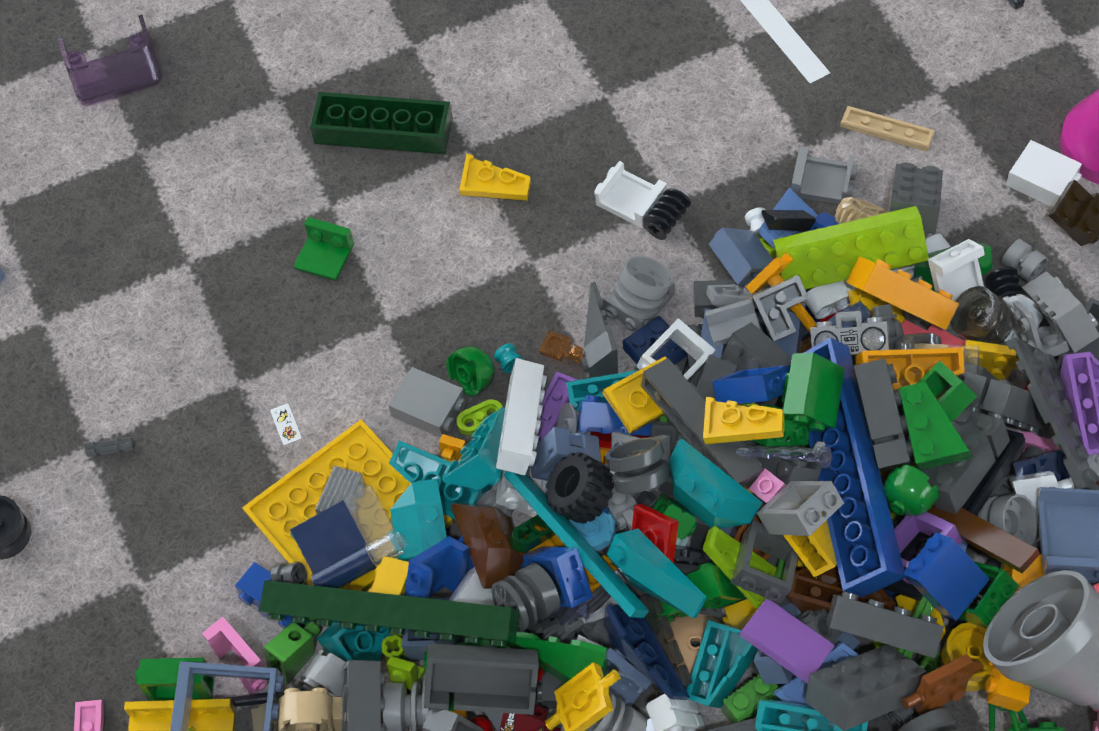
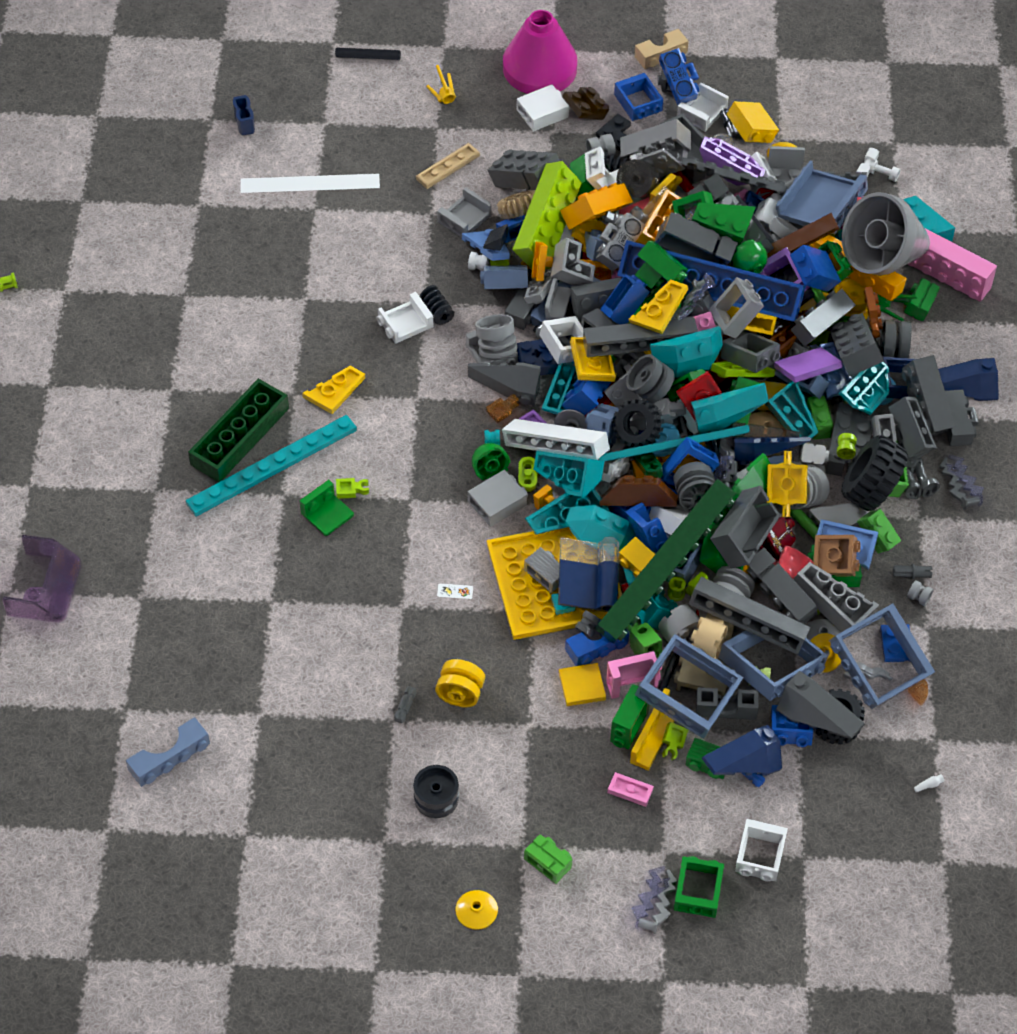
camera: 70 degrees left, 5 degrees down
(144, 483) = (460, 683): none -> yellow wheel
(211, 604) = (582, 684): none -> yellow tile
(364, 177) = (271, 465): none -> teal plate
(366, 257) = (348, 487): none -> lime plate
(992, 73) = (446, 93): none -> yellow plant
(1070, 262) = (615, 127): none -> black plate

